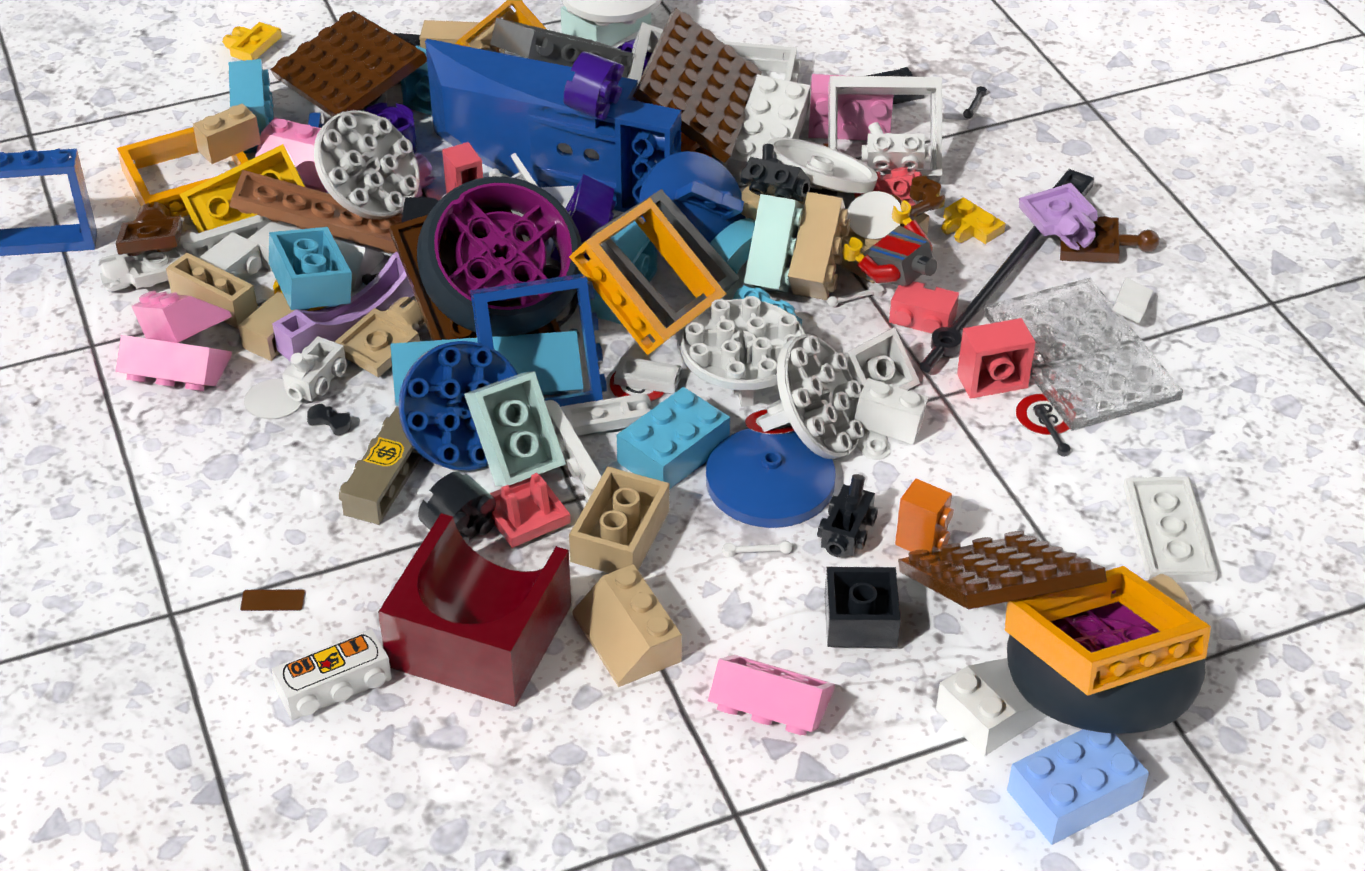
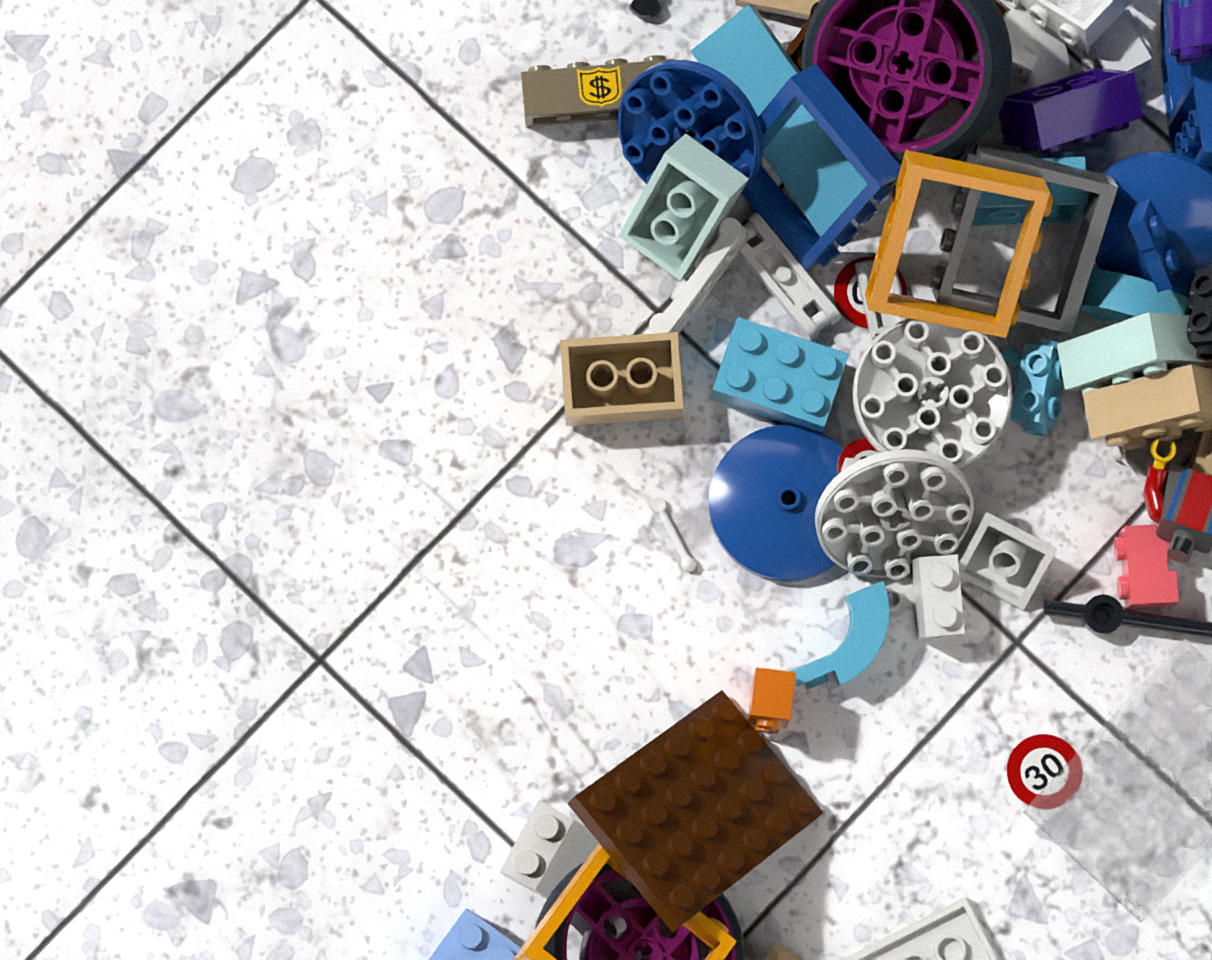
camera: 65 degrees right, 35 degrees up
(272, 600) = (375, 79): reddish brown sticker -> none
(331, 674) = (296, 197): brick -> none
(464, 500) = (555, 205): black brick -> none
(471, 619) = (423, 296): dark red piece -> none
(528, 510) = (603, 270): coral plate -> none
(628, 626) = (491, 452): tan slope -> none
(770, 694) = (473, 633): bright pink slope -> none
(848, 518) = (755, 615): black brick -> none
(862, 607) = (619, 679): black brick -> none
(893, 456) = (863, 641): none -> medium azure arch
(995, 358) = (1079, 684): coral brick -> none
(1063, 448) = (990, 811): black hinge -> none

